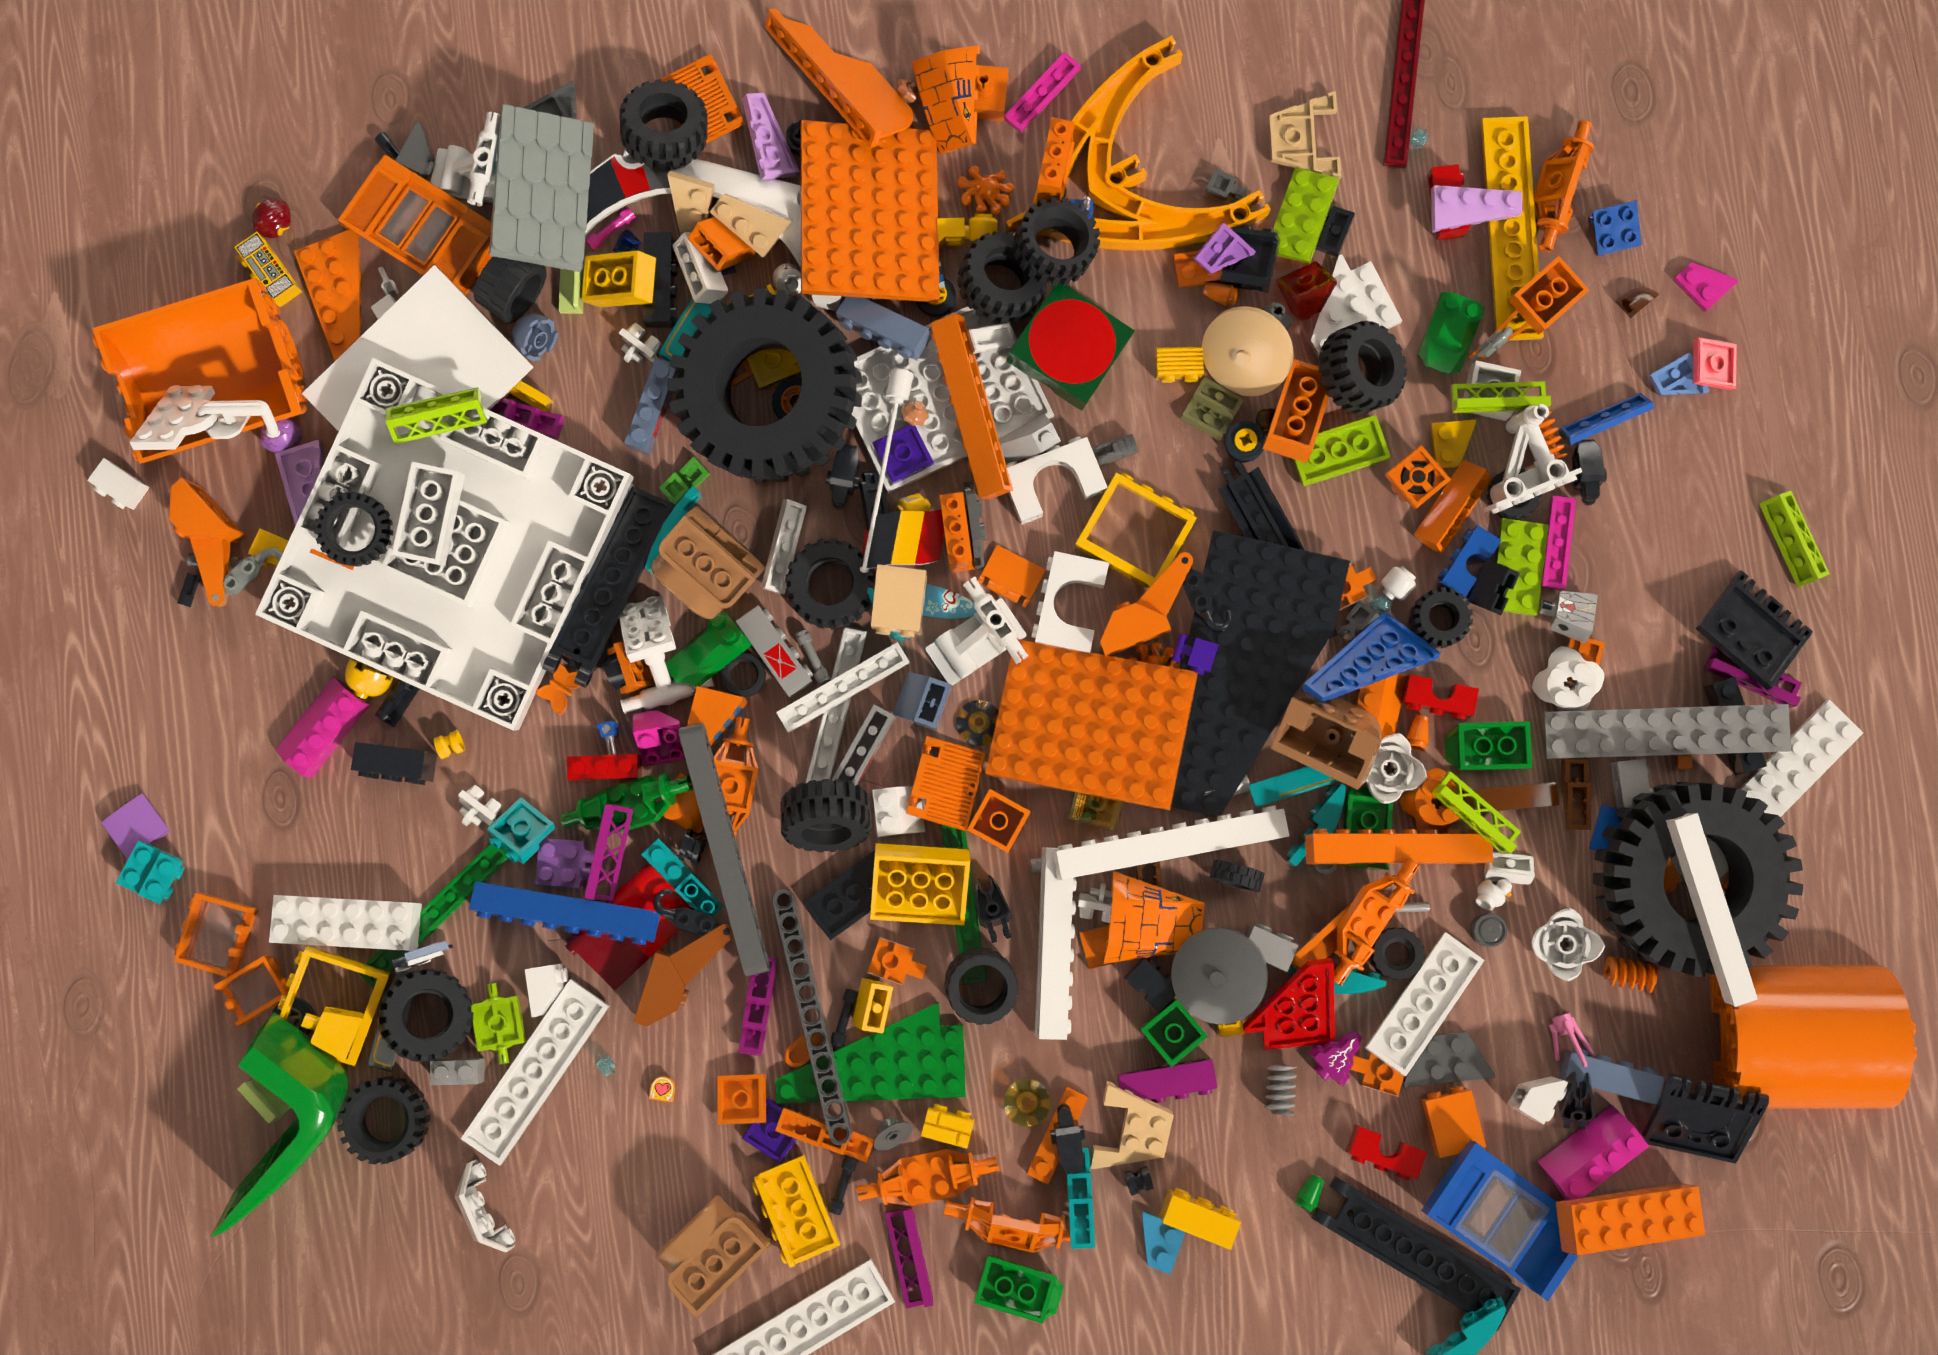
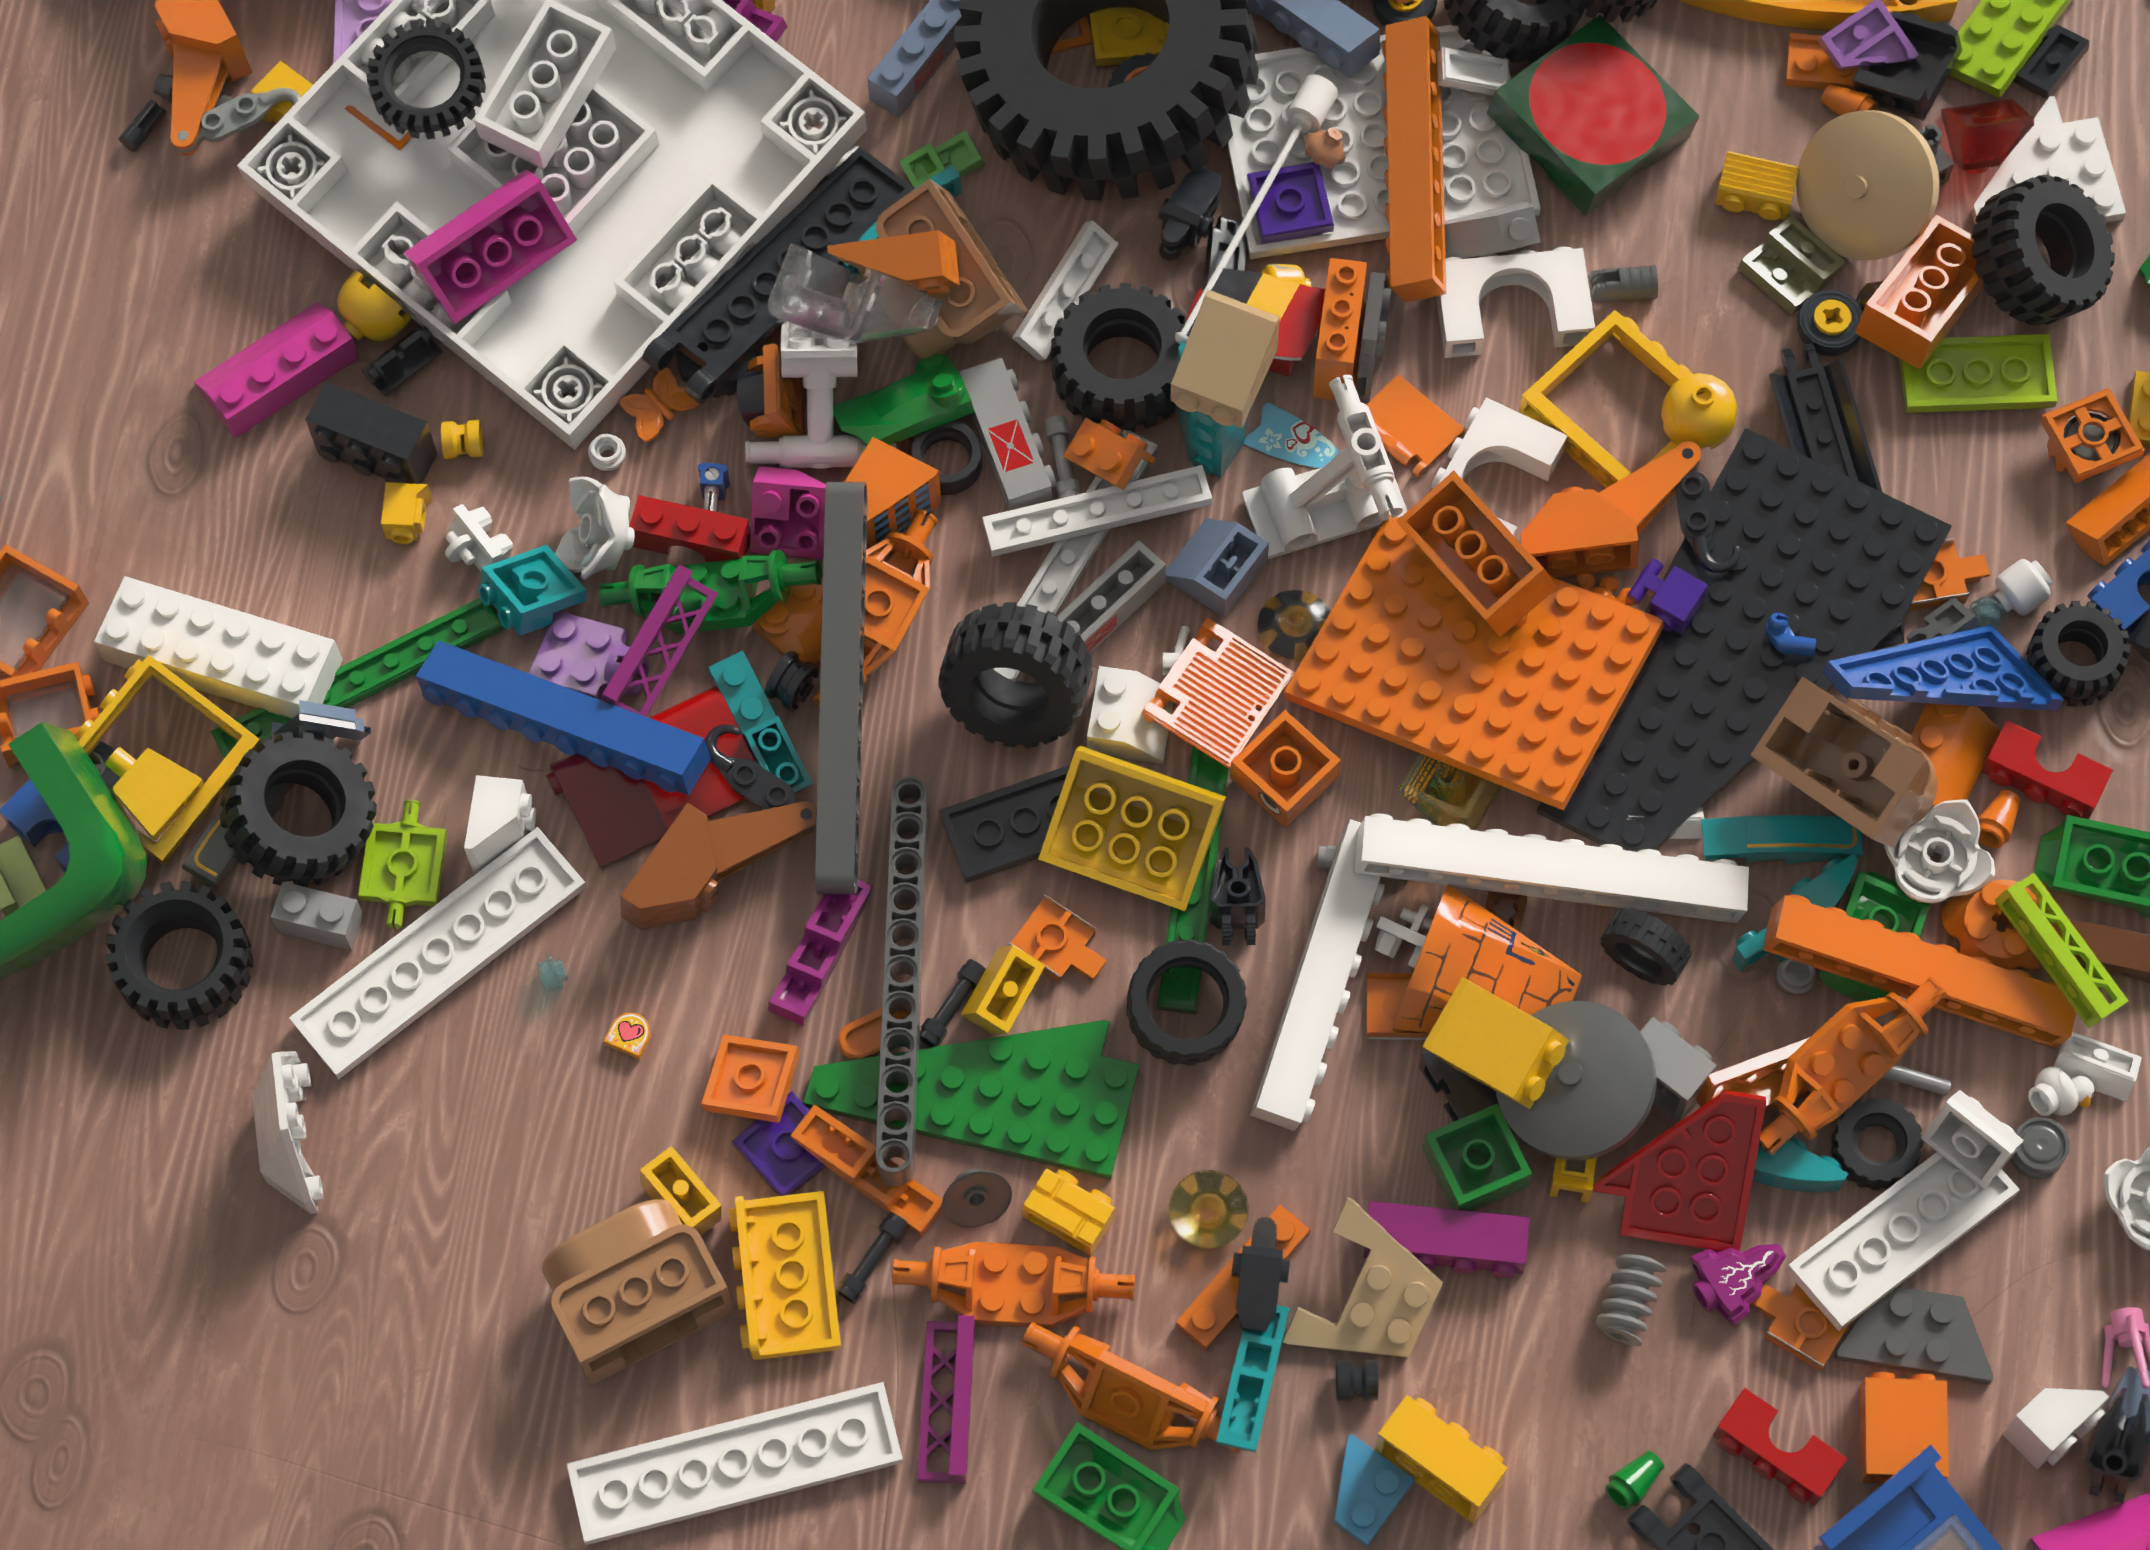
camera: 15 degrees right, 15 degrees down
(427, 627) = (490, 246): none -> dark pink slope
(429, 801) = (404, 511): none -> yellow window
(531, 727) = (607, 442): none -> white plate
(550, 787) = (602, 531): none -> white brick
(647, 608) = (843, 305): none -> clear windscreen
(686, 577) = (915, 259): none -> orange slope
(722, 1183) = (673, 1180): none -> yellow brick
(839, 649) = (1106, 453): none -> orange bracket
(912, 767) = (1170, 659): none -> white hand
(1077, 663) = (1477, 553): none -> orange brick
(1170, 972) = (1496, 1043): none -> yellow slope
(1175, 529) = (1699, 411): none -> yellow cylinder
(1271, 662) = (1785, 640): none -> blue arm
(1453, 941) = (1972, 1138): none -> white slope

